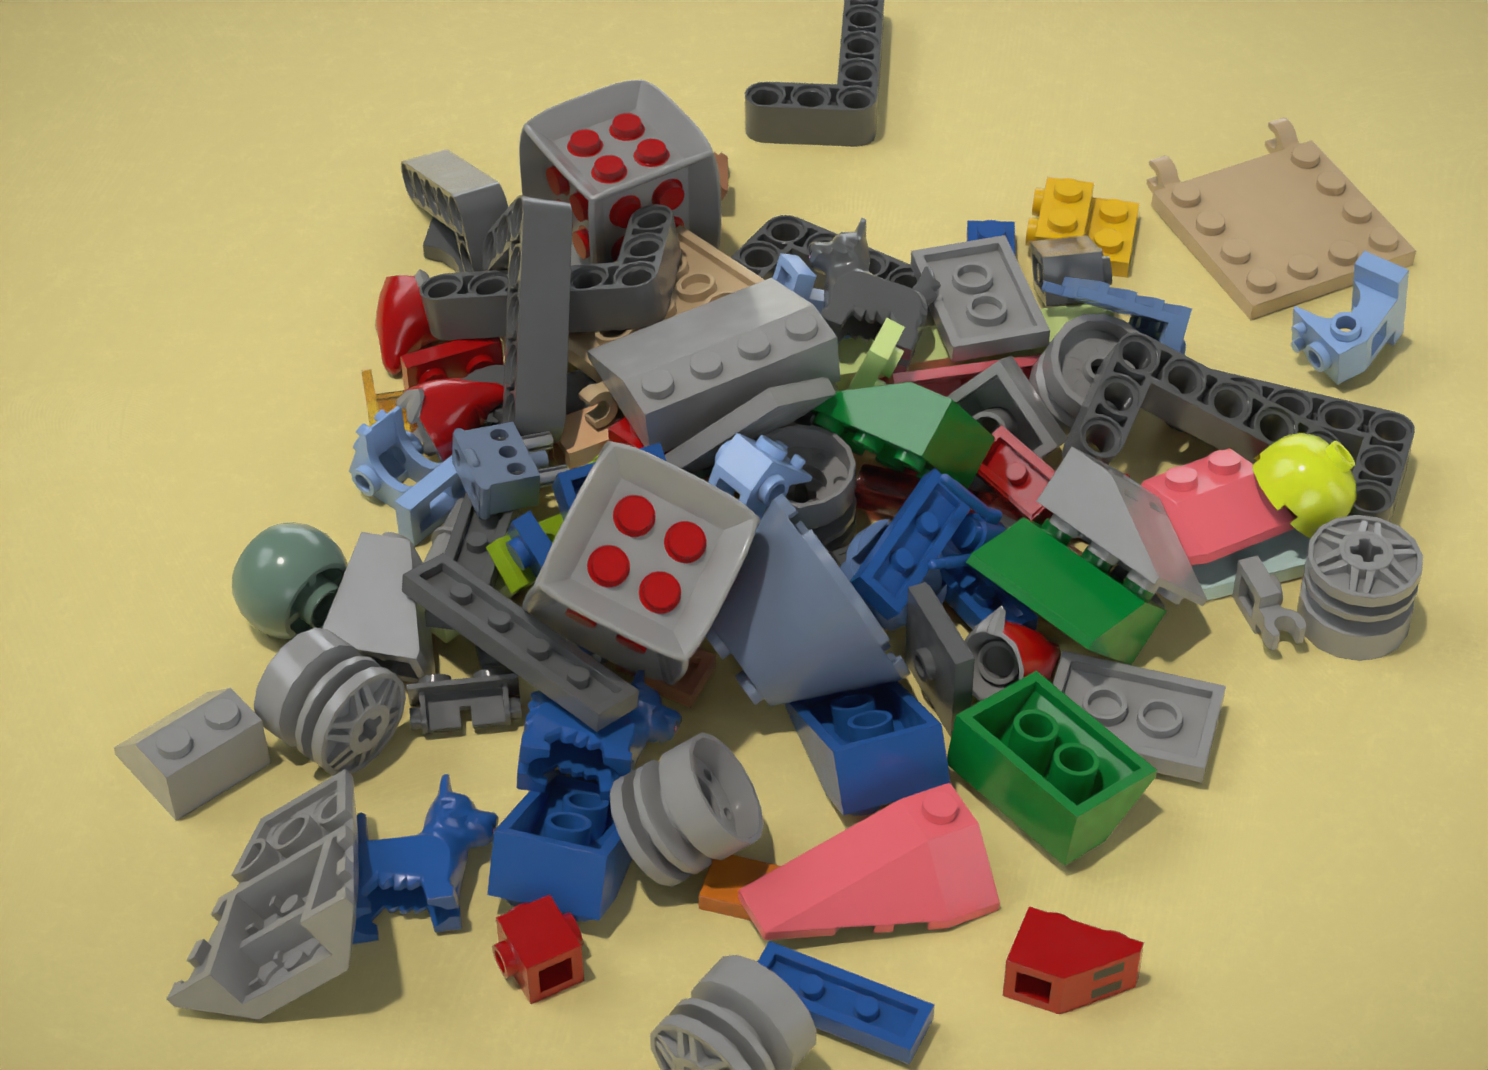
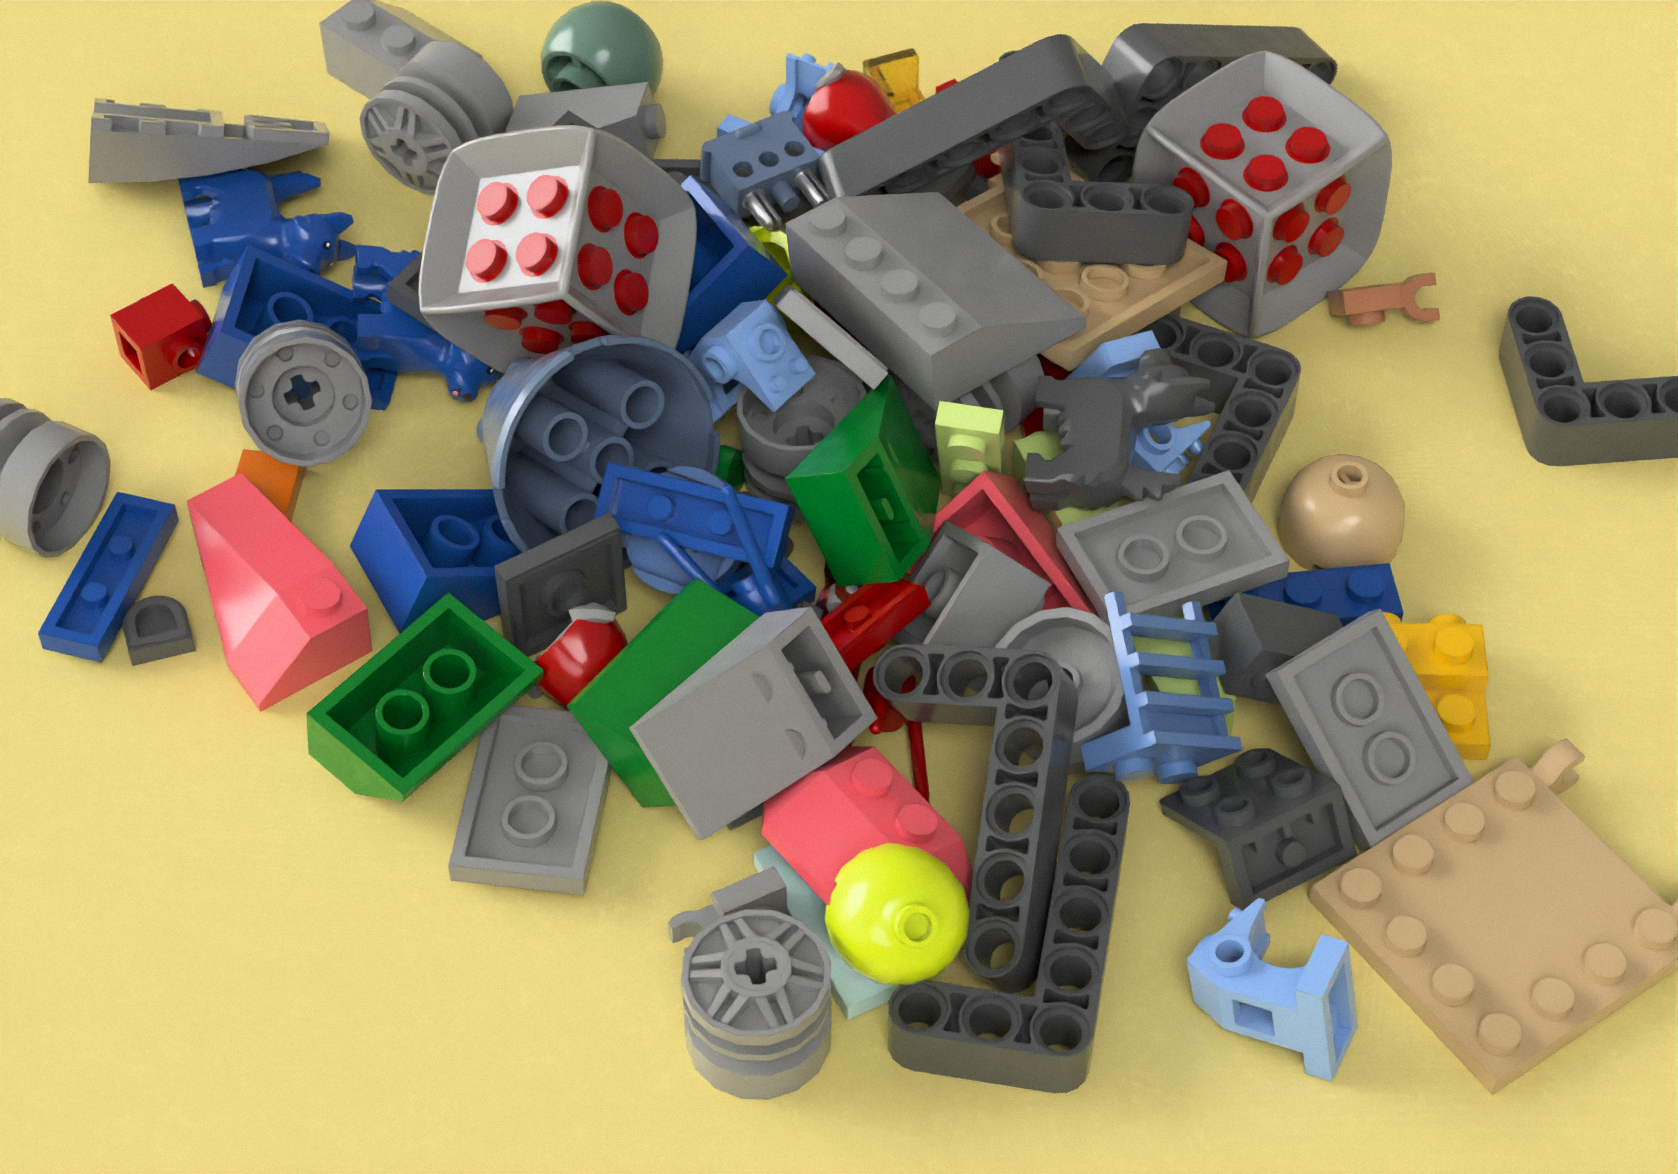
camera: 80 degrees right, 5 degrees up
(902, 969) = (157, 630): none -> dark grey tile
(915, 222) = (1341, 514): none -> tan cylinder
(1068, 963) = (162, 754): red slope -> none
(1143, 238) = (1370, 727): none -> light grey plate
(1212, 314) = (1268, 821): none -> dark grey bracket

